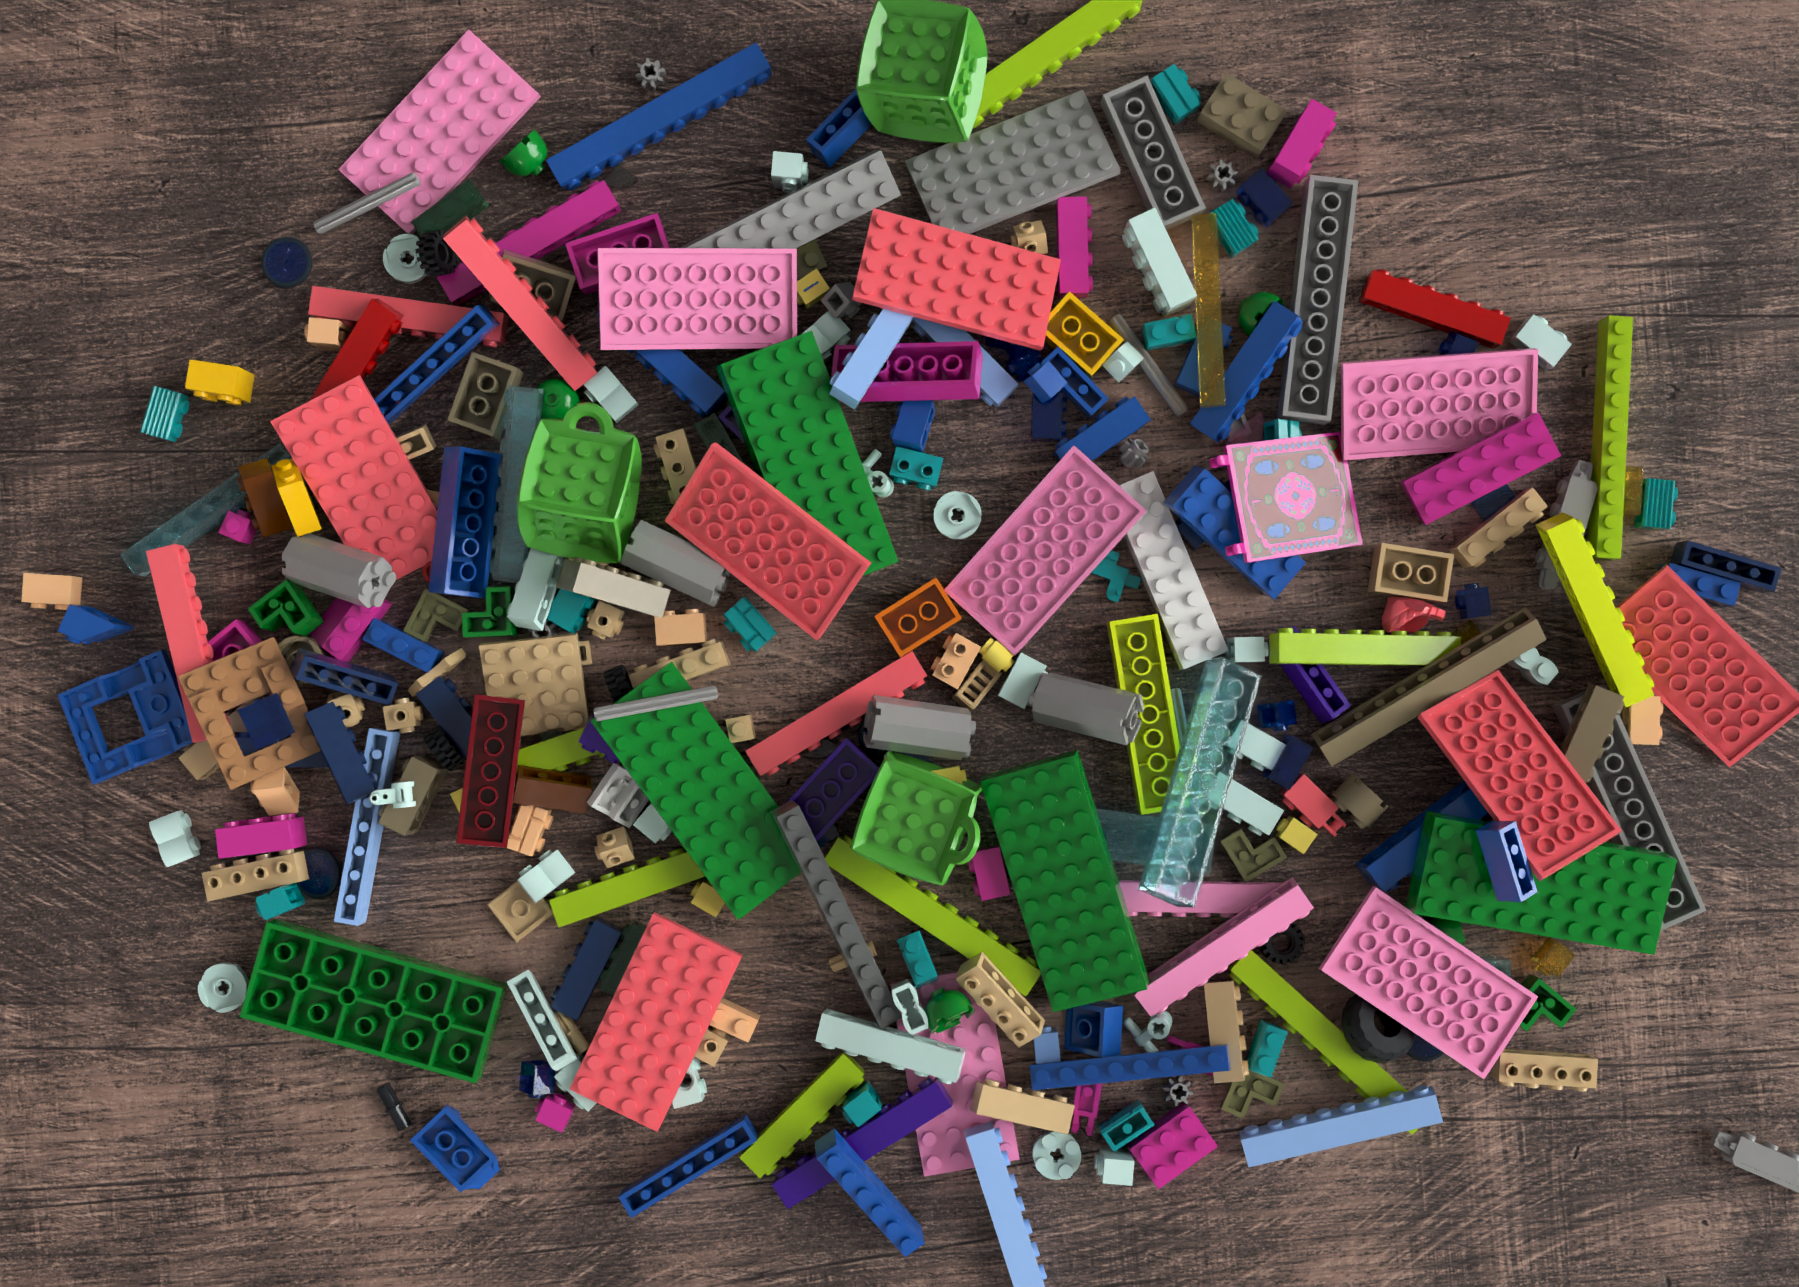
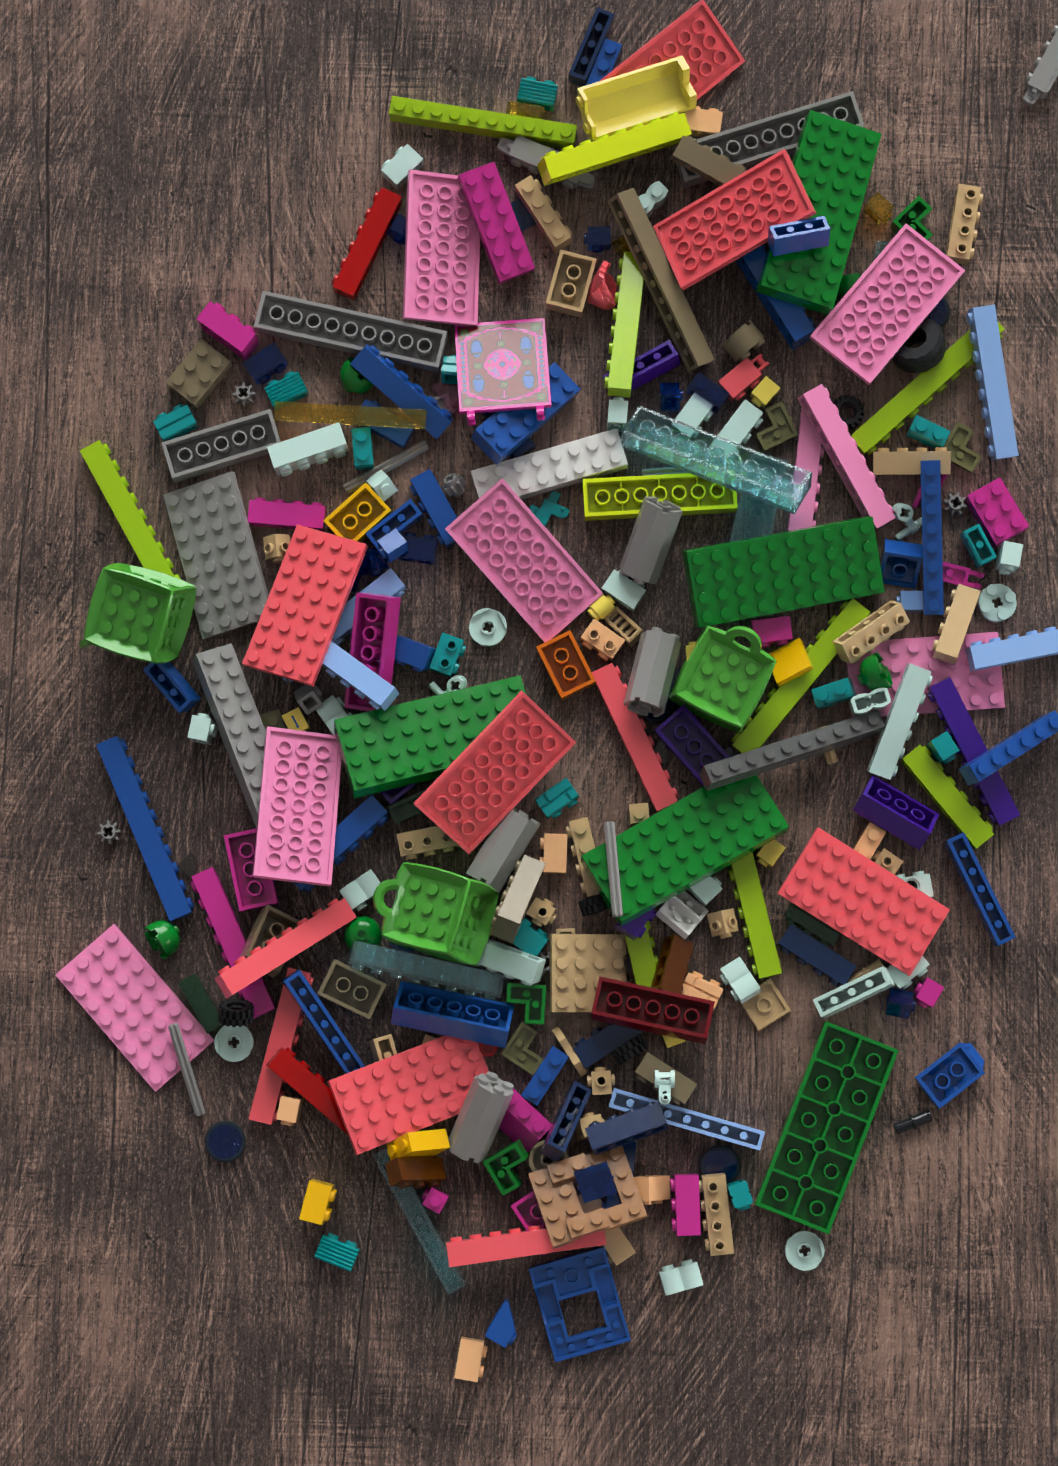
camera: 80 degrees left, 5 degrees down
(773, 1052) = (896, 812): none -> dark purple brick
(952, 901) = (790, 661): none -> yellow tile
(1667, 630) = (636, 97): none -> light yellow panel

